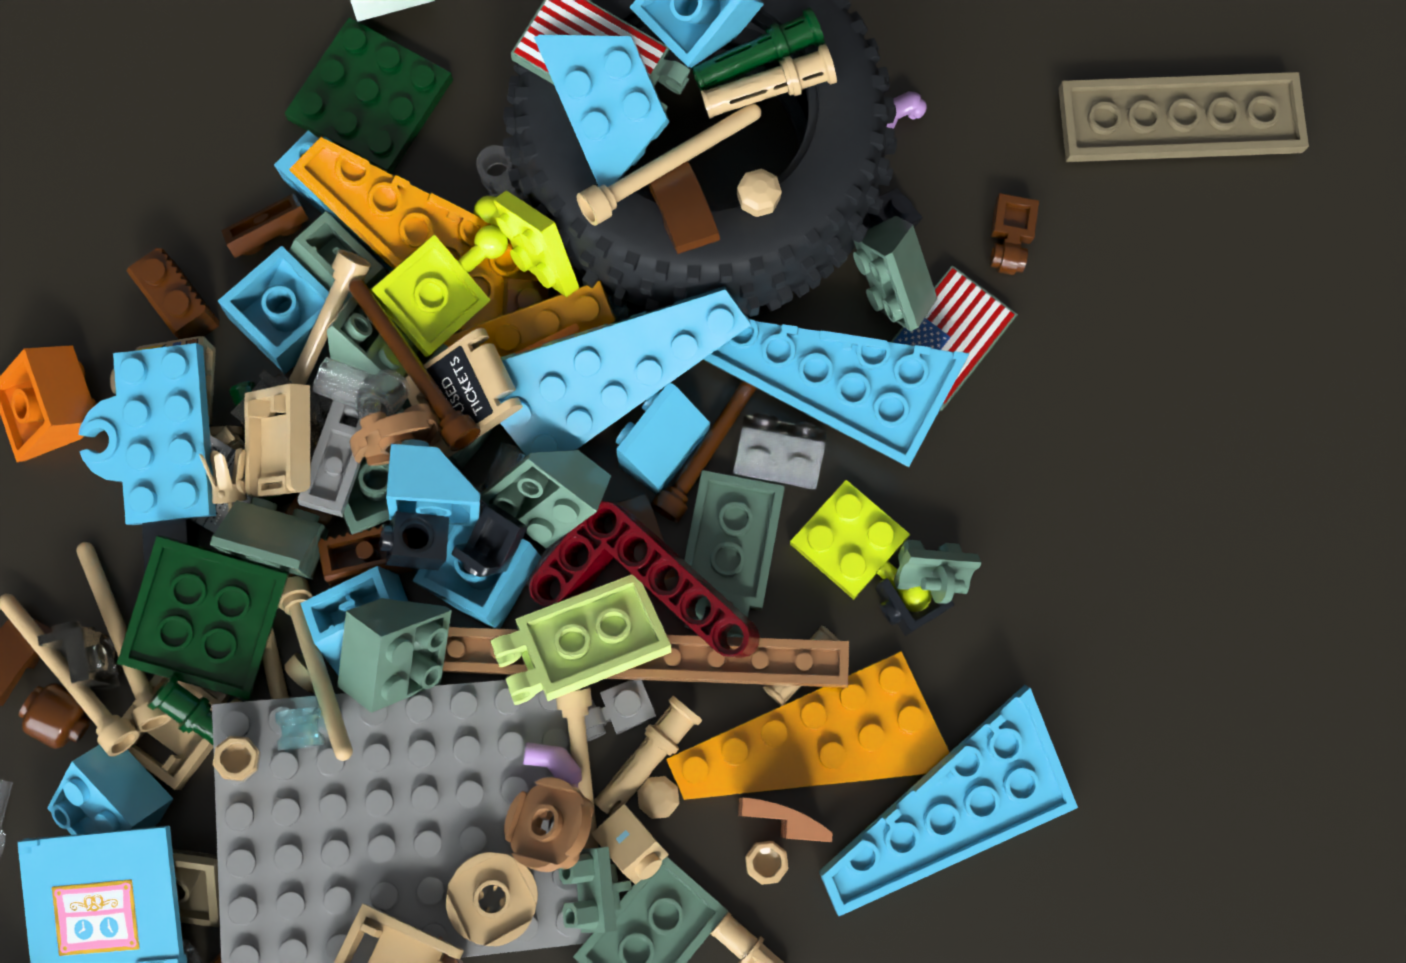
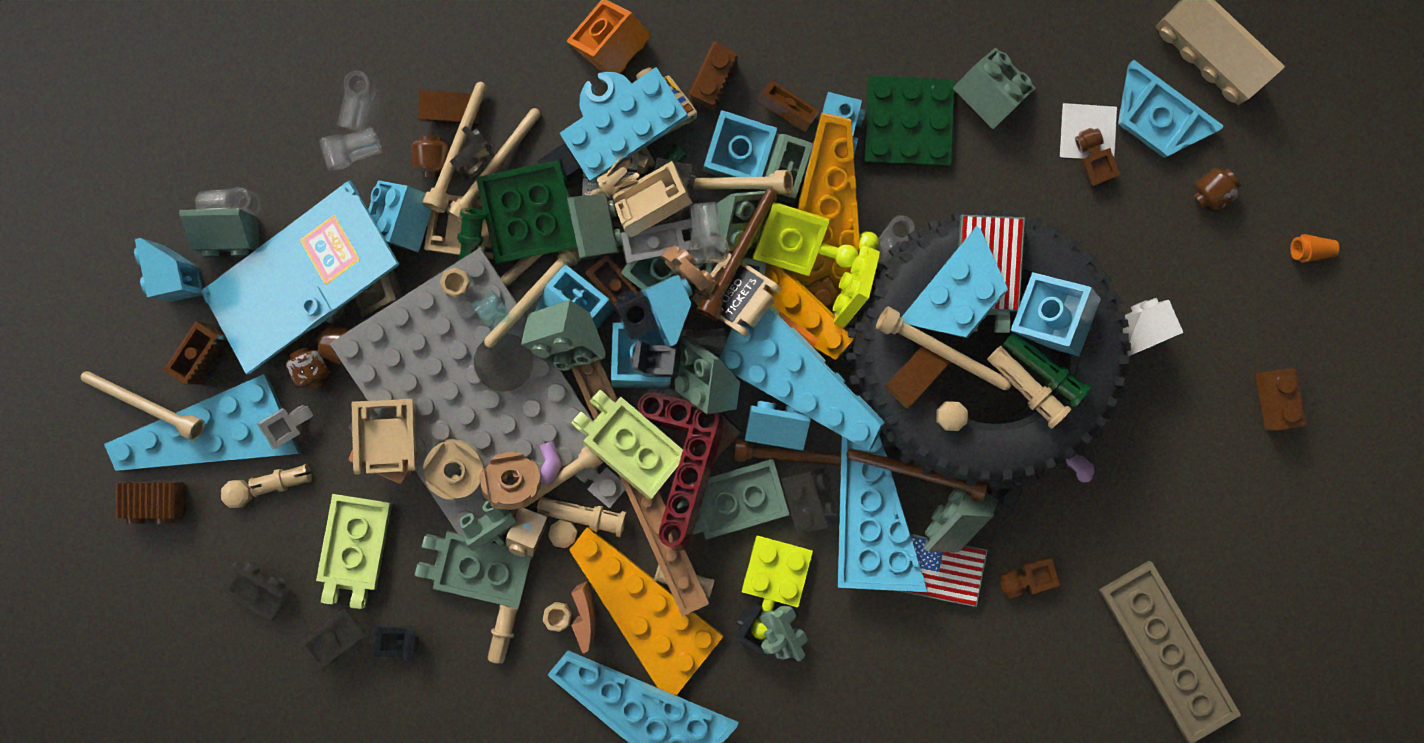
camera: 70 degrees right, 10 degrees up
(298, 671) = (527, 282): tan tile -> none
(386, 754) = (504, 365): none -> clear smoke tile
(872, 227) = (977, 491): none -> reddish brown piece

